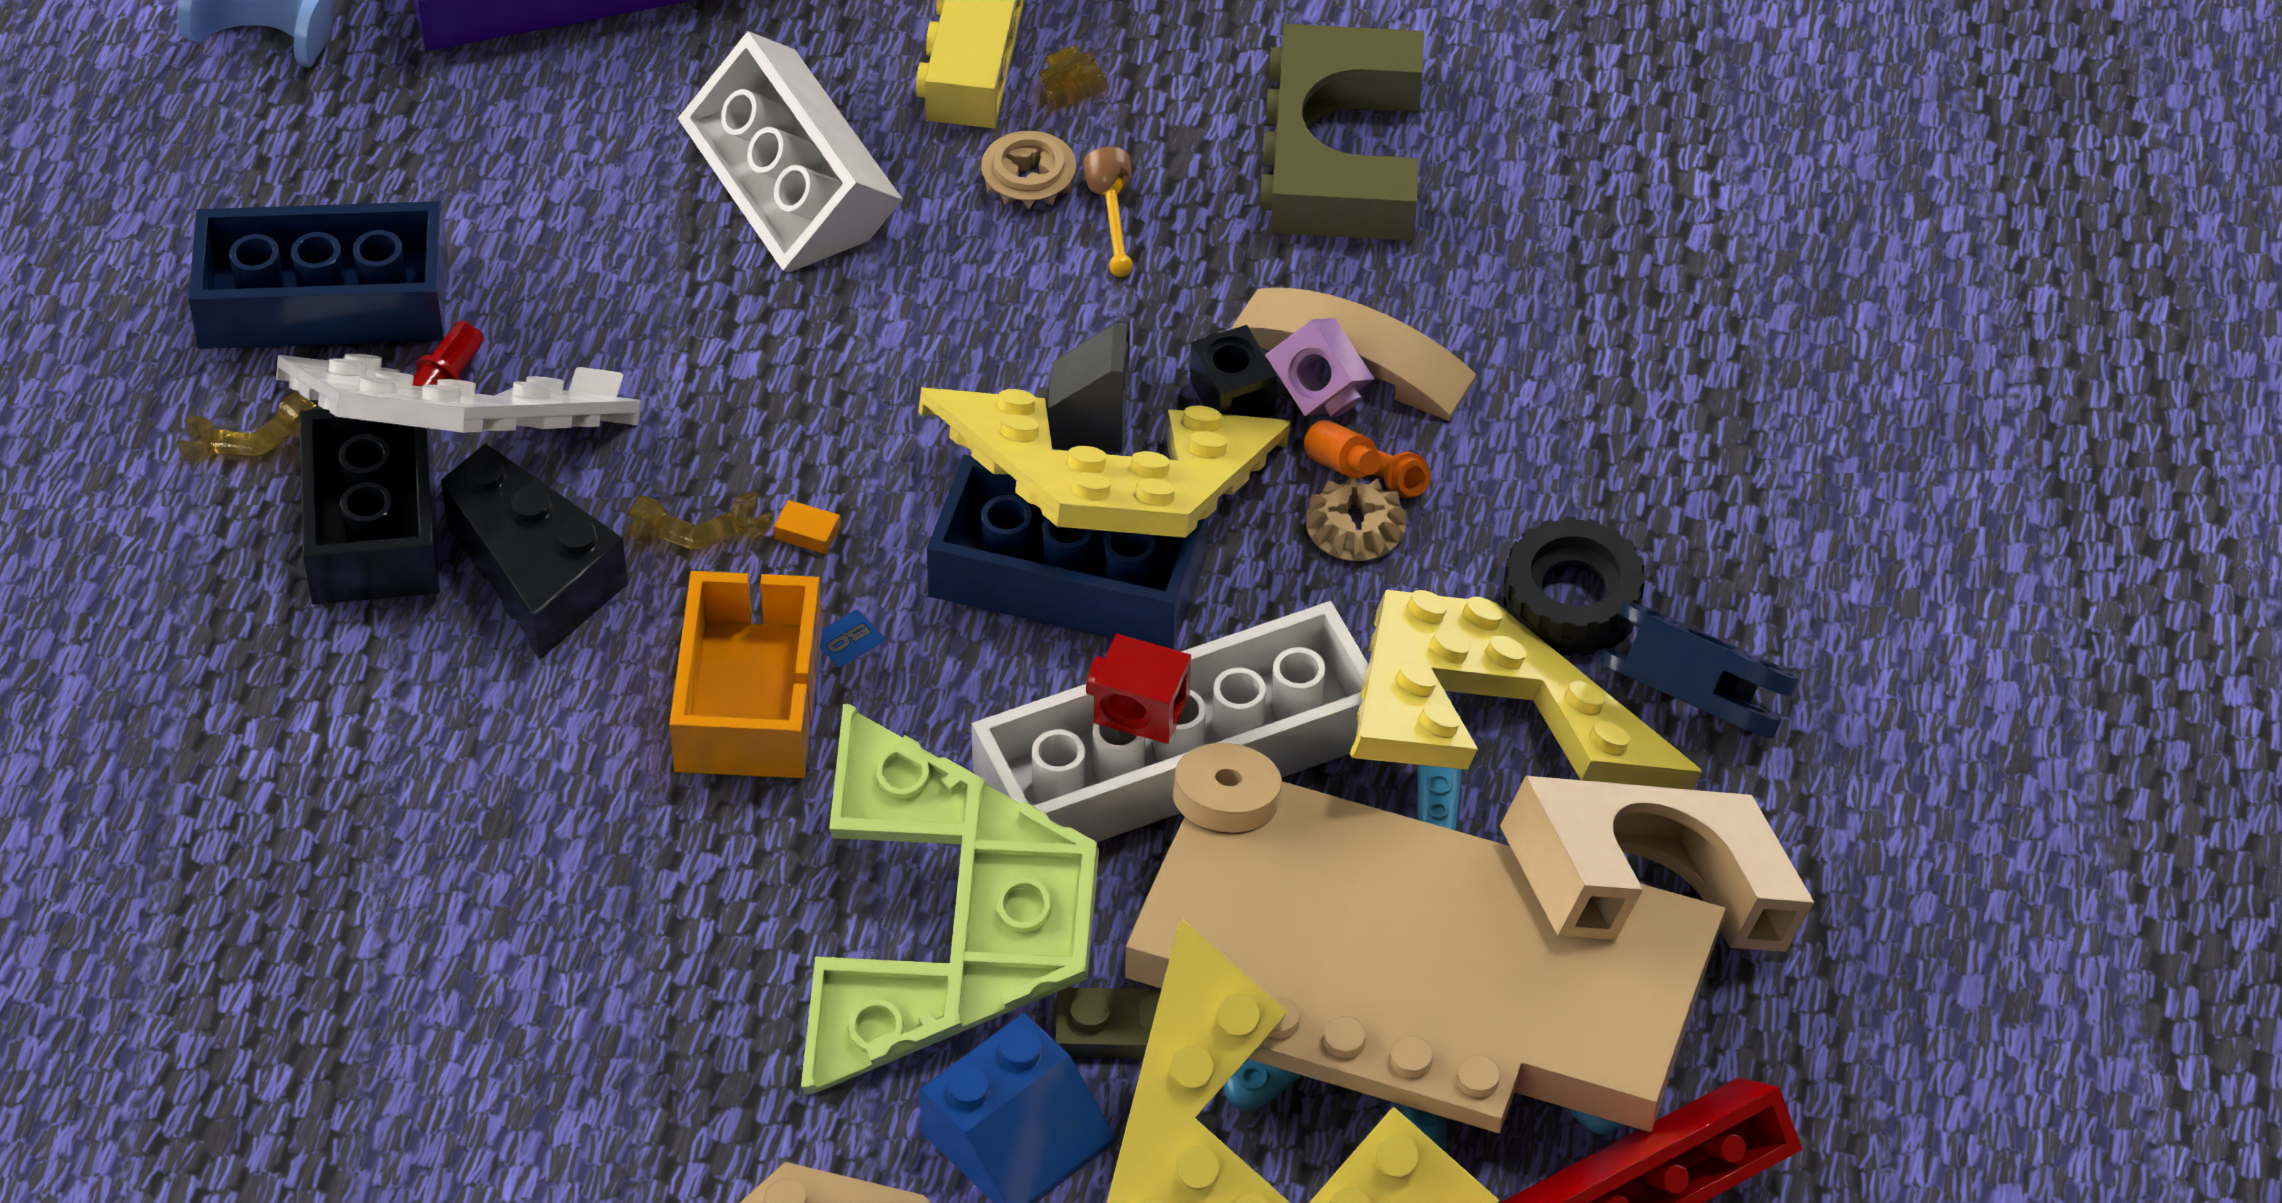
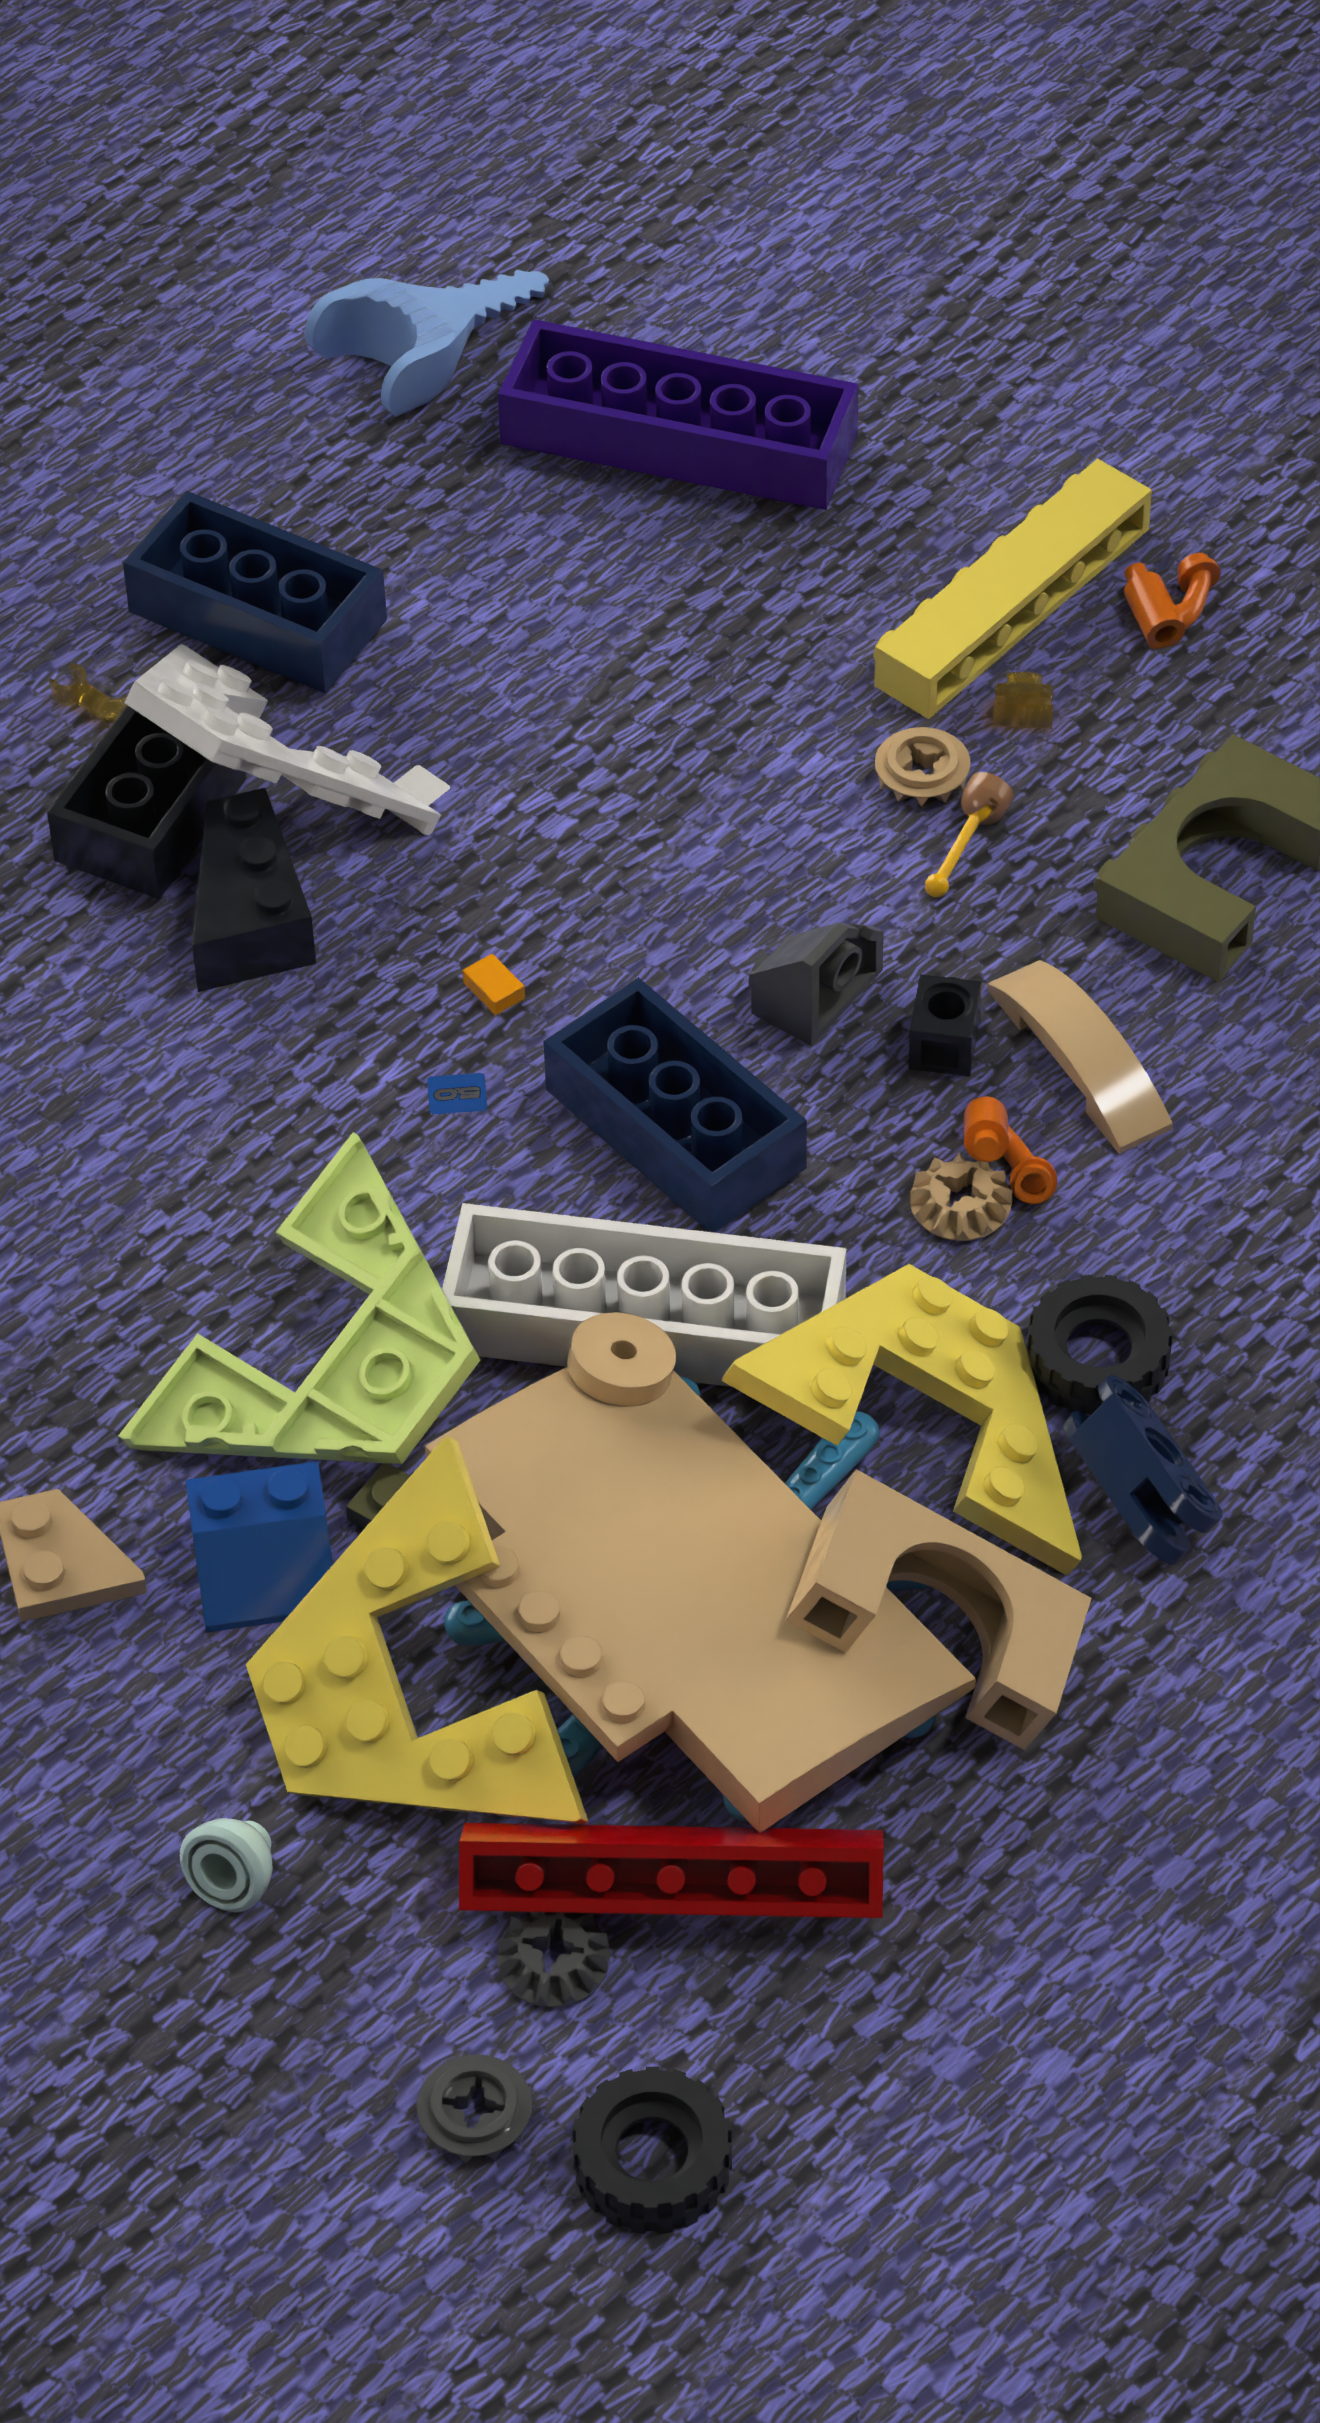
camera: 35 degrees right, 0 degrees up
(450, 356) = (308, 711): red axle -> none
(653, 522) = (372, 923): clear yellow arm -> none
(743, 685) = (329, 1075): light orange piece -> none
(787, 155) = (723, 661): white slope -> none
(1105, 491) = (753, 1078): light yellow wing -> none
(1140, 688) = (610, 1240): red brick -> none
(1296, 364) = (1018, 1049): lavender brick -> none

